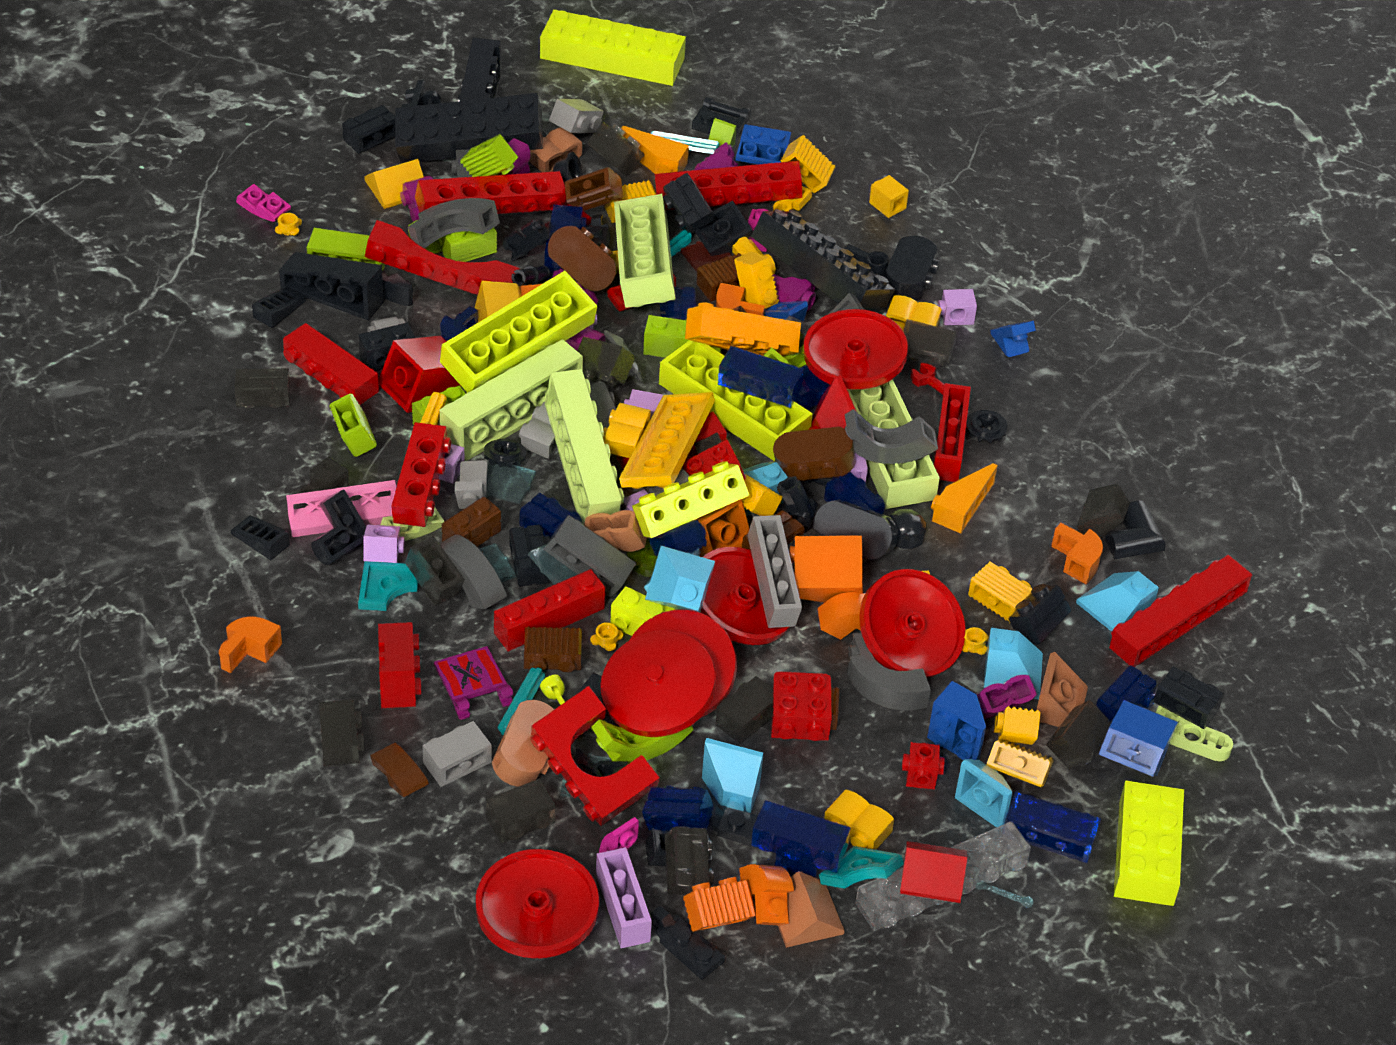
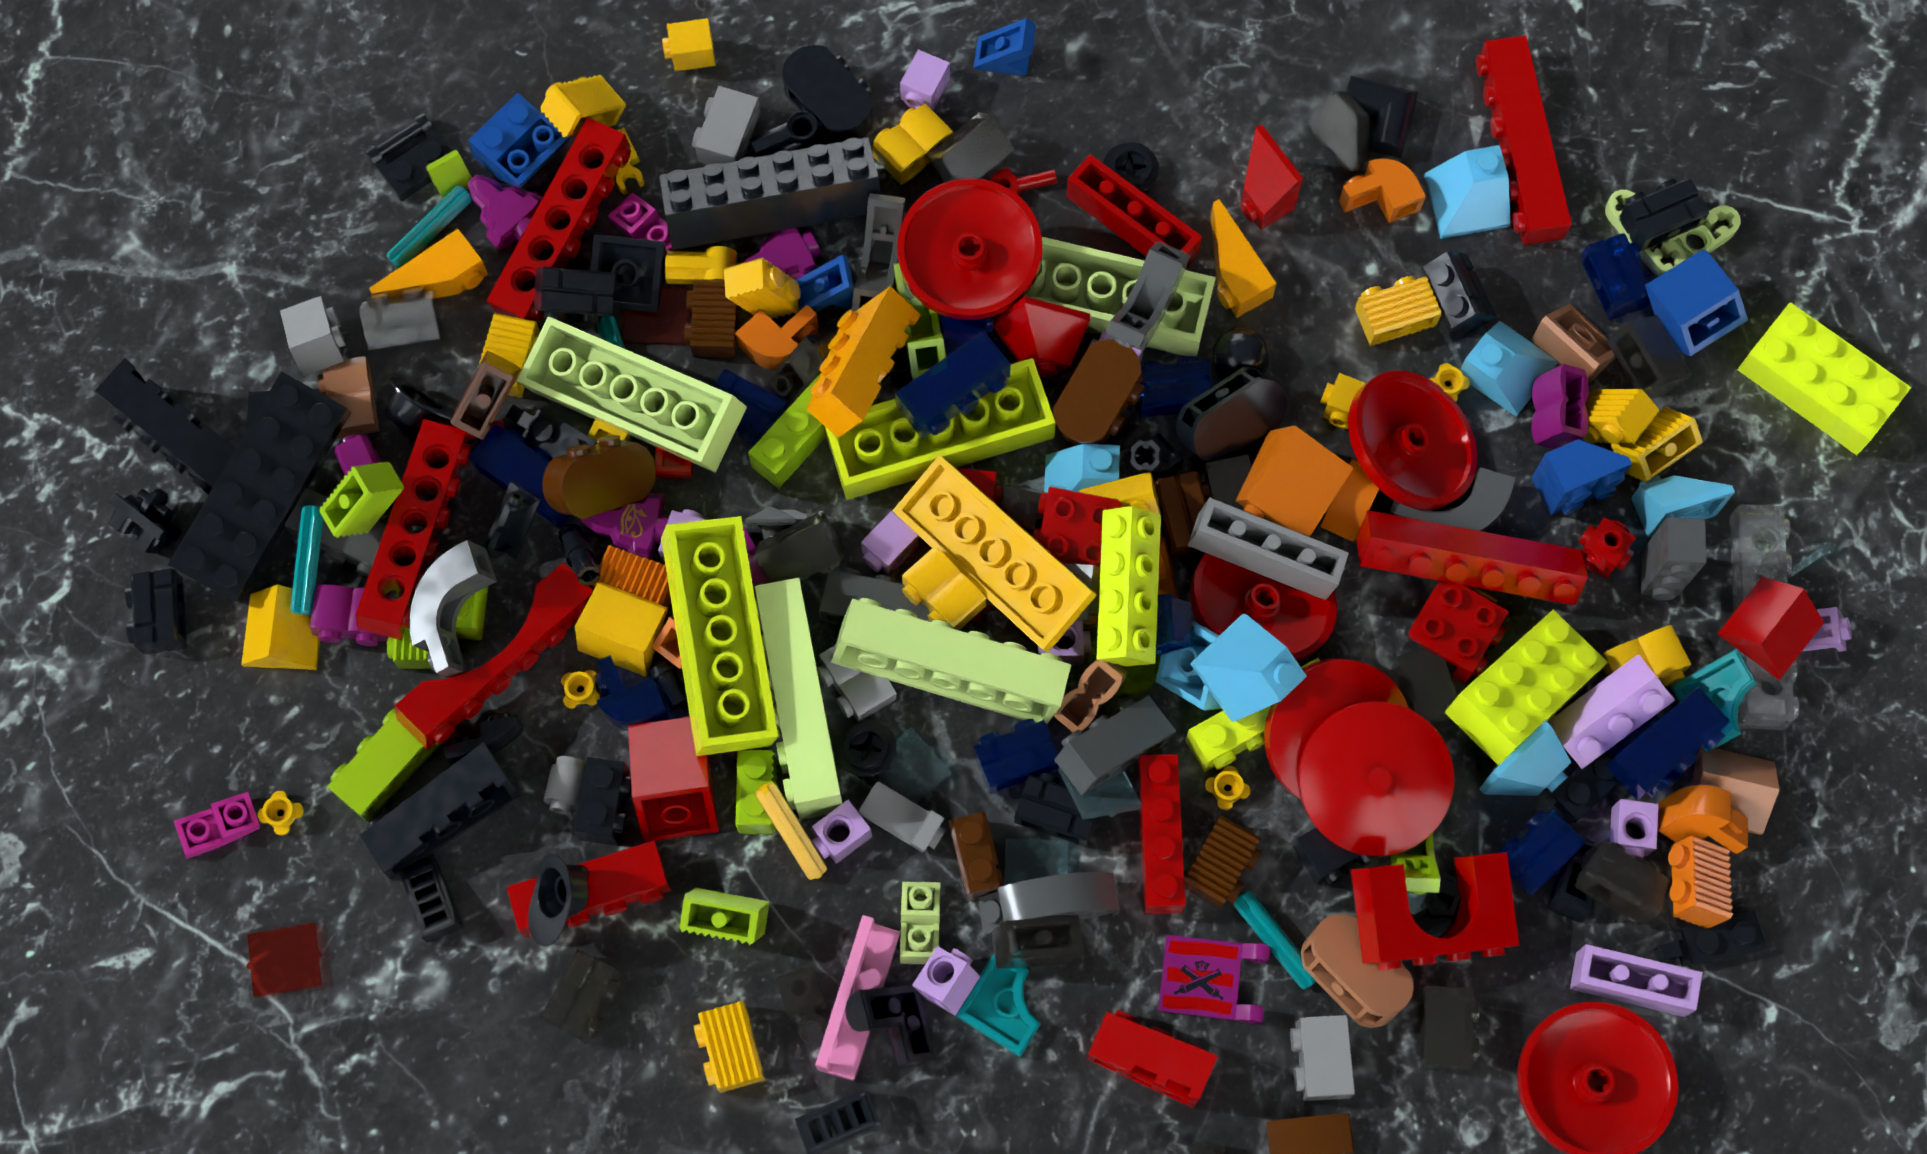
camera: 55 degrees left, 25 degrees up
(203, 264) = (284, 960): none -> clear red piece
(275, 465) = (730, 1047): none -> yellow brick
(316, 342) = (557, 895): none -> black piece
(420, 474) = (842, 829): red brick -> none
(437, 165) = (306, 560): none -> teal axle
(450, 310) = (572, 681): none -> yellow plate
(553, 688) = (1279, 893): neon yellow hinge -> none
(612, 47) = (193, 213): neon yellow brick -> none
(621, 837) = (1558, 942): dark pink slope -> none
(736, 850) = (1642, 815): none -> lavender brick
(792, 749) = (1525, 687): none -> neon yellow brick
(816, 801) = (1610, 711): none -> lavender brick
(853, 230) = (727, 127): none -> light grey brick
(854, 685) = (1471, 558): none -> red brick
(937, 787) = (1672, 557): none -> dark grey brick
(963, 917) = (1833, 631): none -> lavender bracket
(1030, 486) = (1270, 182): none -> red slope
(1053, 826) = (1756, 459): clear blue brick -> none

